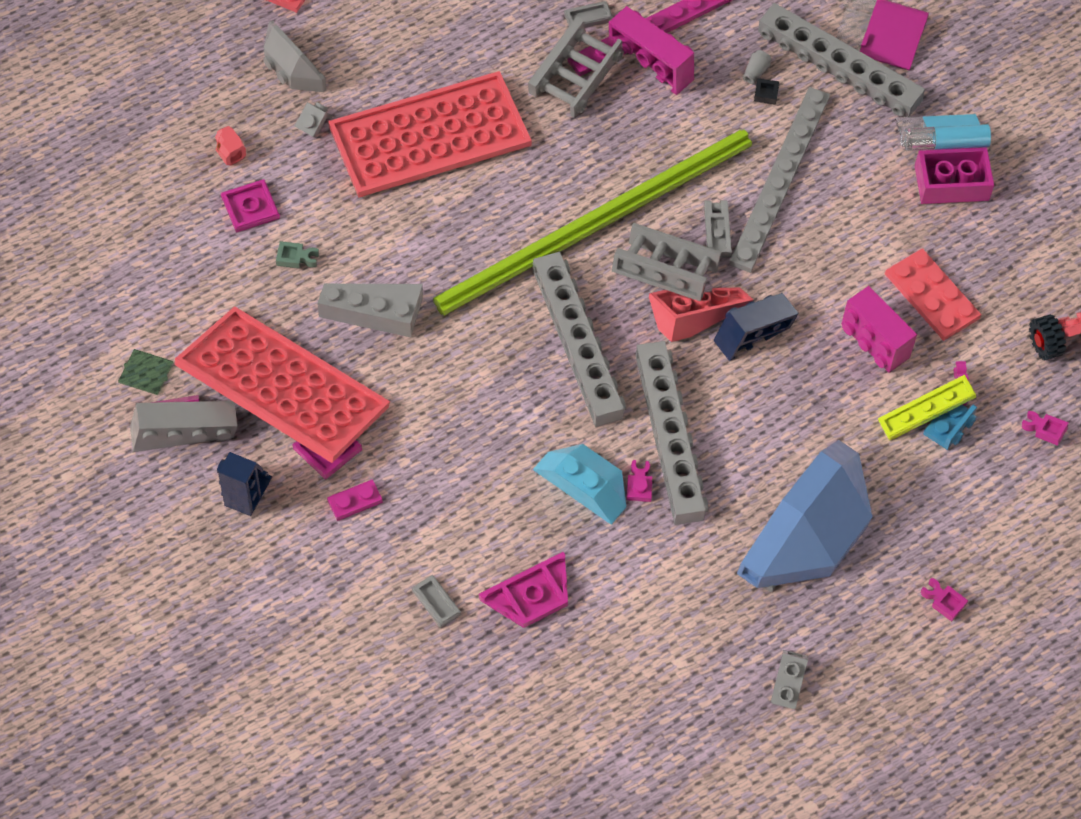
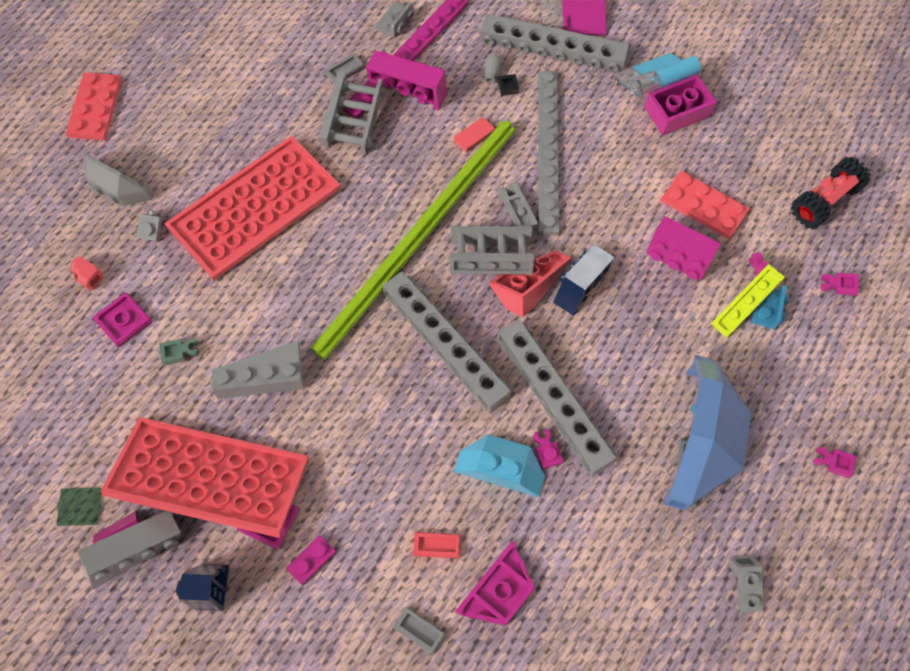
camera: 20 degrees left, 5 degrees up
(486, 531) = (436, 545): none -> coral tile
(703, 134) = (474, 134): none -> coral tile

